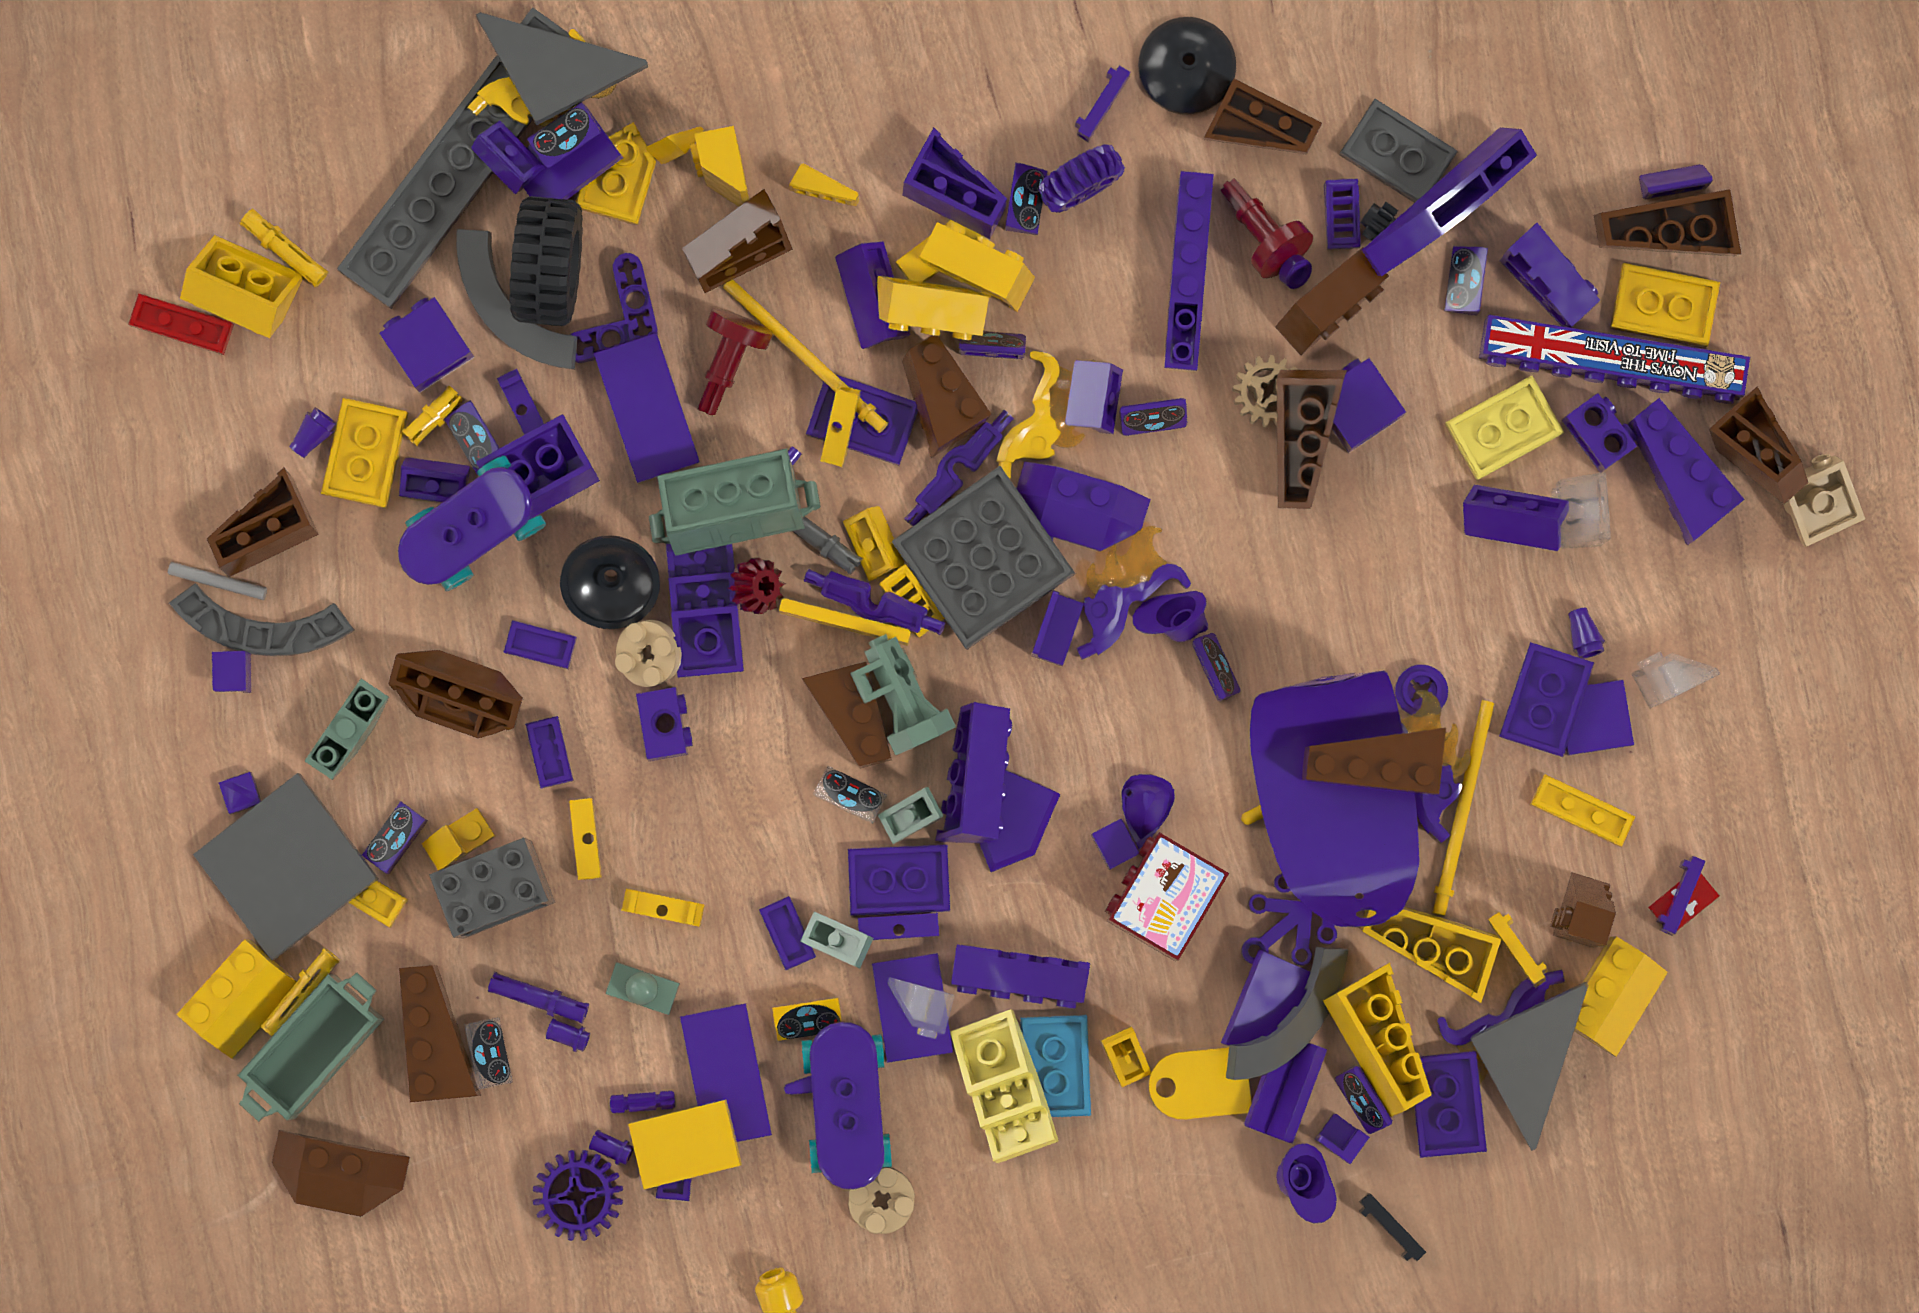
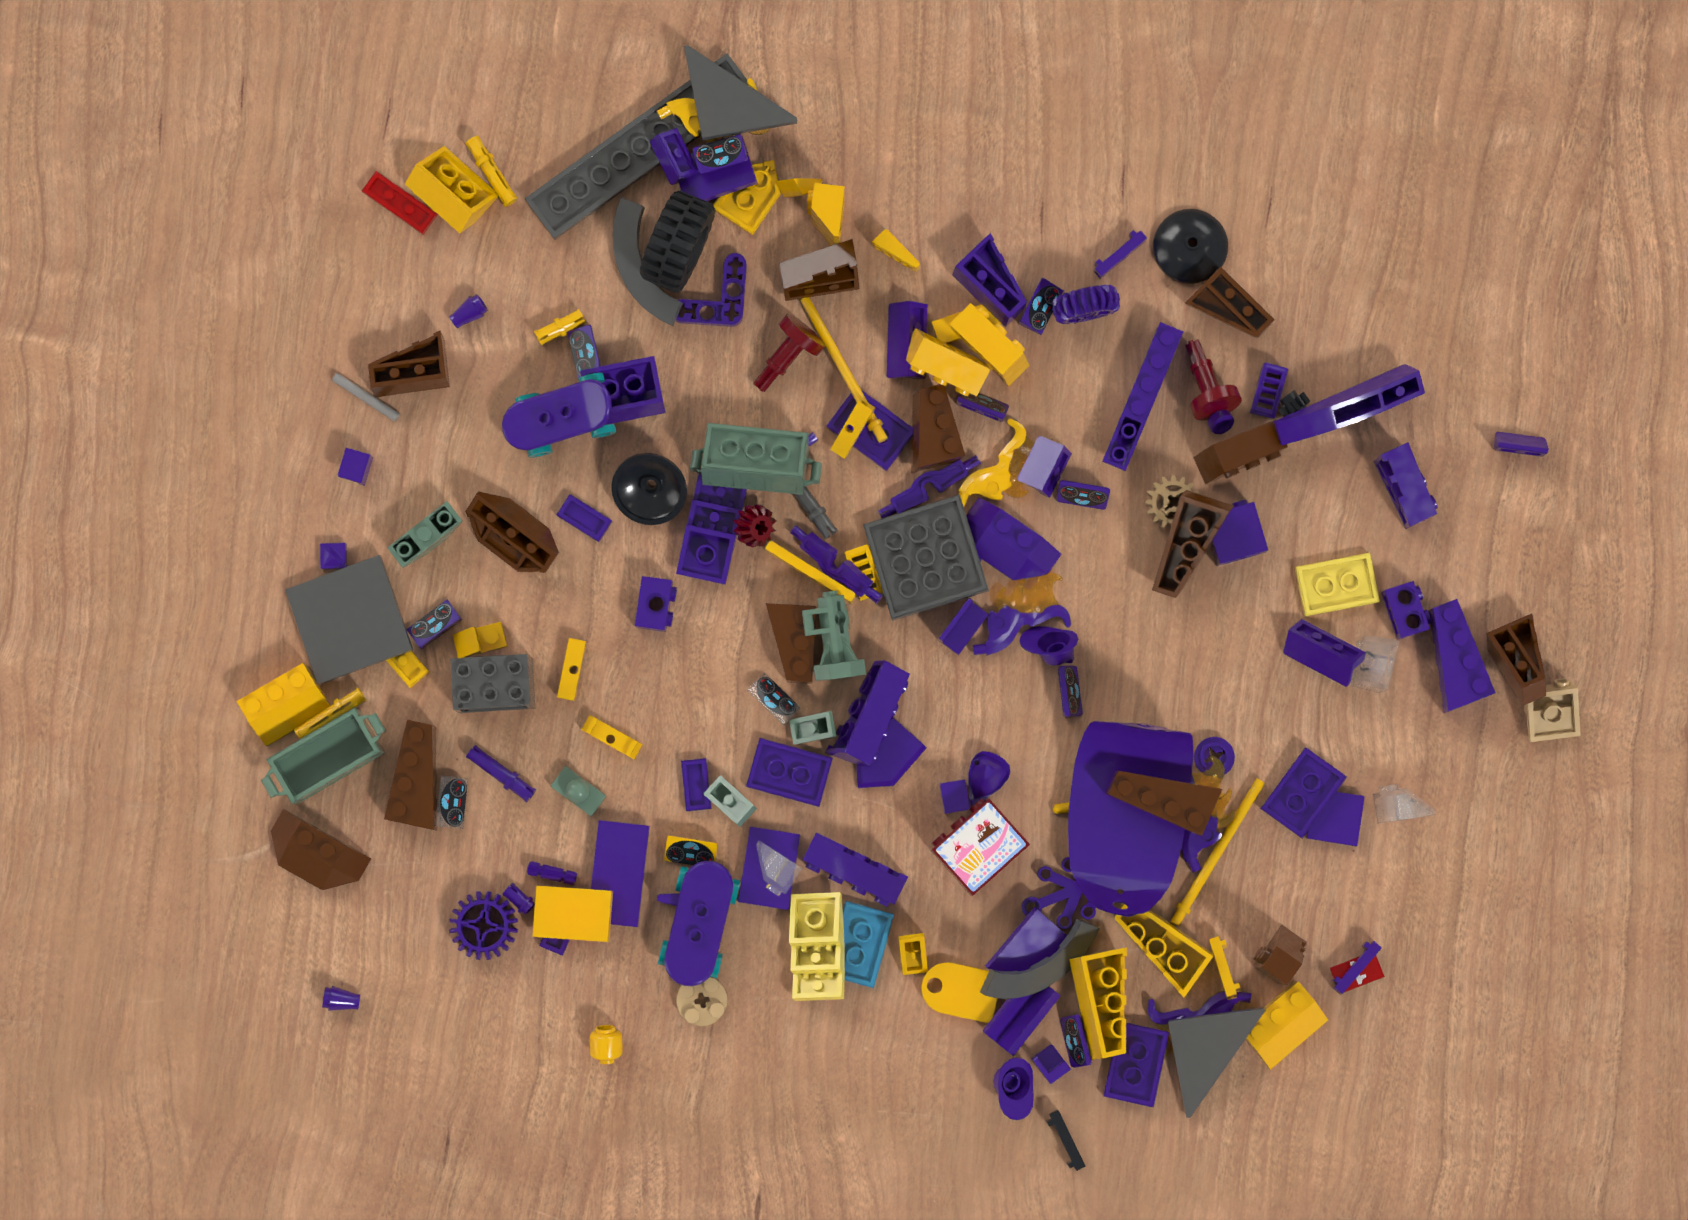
camera: 20 degrees right, 0 degrees up
(256, 636) = (385, 448): dark grey tile -> none
(364, 453) = (501, 338): yellow tile -> none
(426, 343) = (571, 273): dark purple piece -> none
(431, 479) = (544, 373): dark purple slope -> none
(517, 396) = (626, 332): dark purple piece -> none
(549, 752) = (566, 598): dark purple plate -> none
(568, 1035) = (513, 807): dark purple pin -> none
(630, 653) = (647, 549): tan plate -> none
(646, 407) = (716, 370): dark purple slope -> none
(873, 542) = (849, 520): yellow slope -> none
(915, 926) = (790, 809): dark purple piece -> none
(1397, 151) = (1324, 358): dark grey tile -> none
(1466, 280) = (1344, 467): slope -> none
(1582, 810) = (1304, 882): yellow tile -> none
(1585, 635) = (1347, 754): dark purple cone -> none
(1614, 358) = (1434, 559): brick -> none
(1665, 305) = (1484, 532): yellow tile -> none
(1681, 225) = (1516, 478): reddish brown wedge -> none

